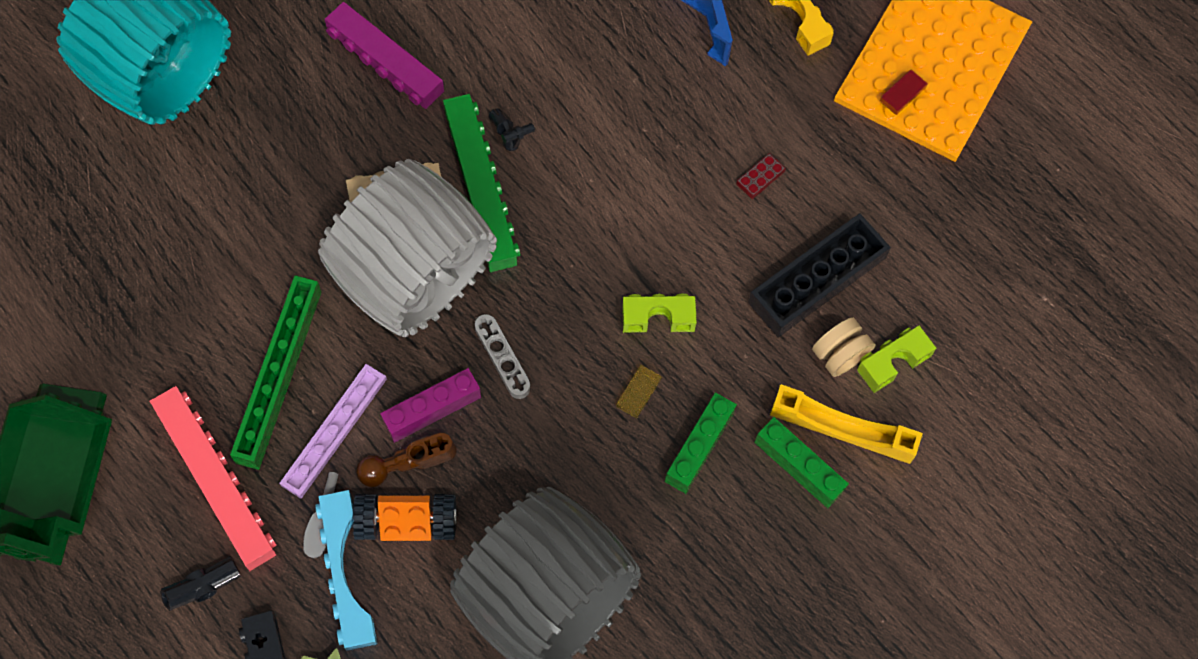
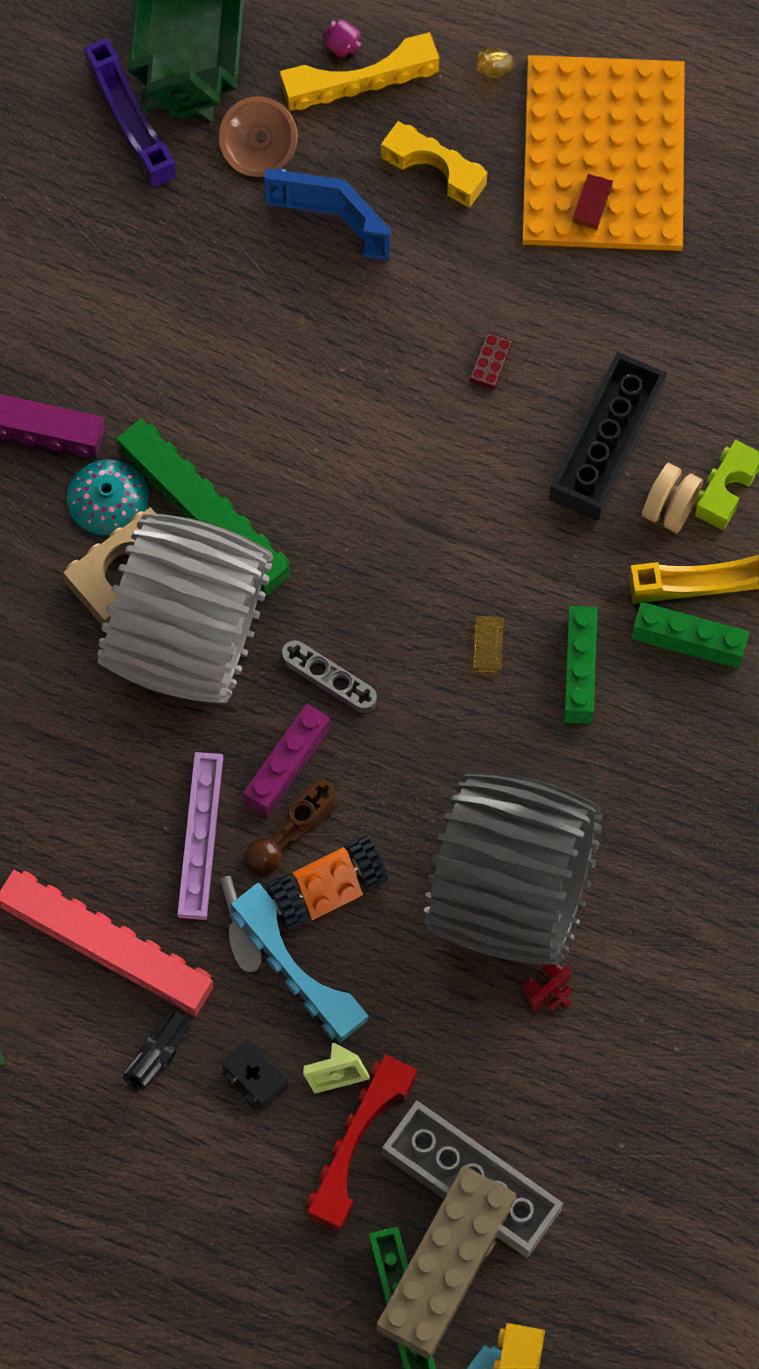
camera: 25 degrees left, 0 degrees up
(276, 373) = (109, 805): green brick -> none
(429, 146) = (104, 512): none -> teal dish
(510, 135) = (209, 444): black pin -> none
(678, 309) = (484, 541): lime arch -> none

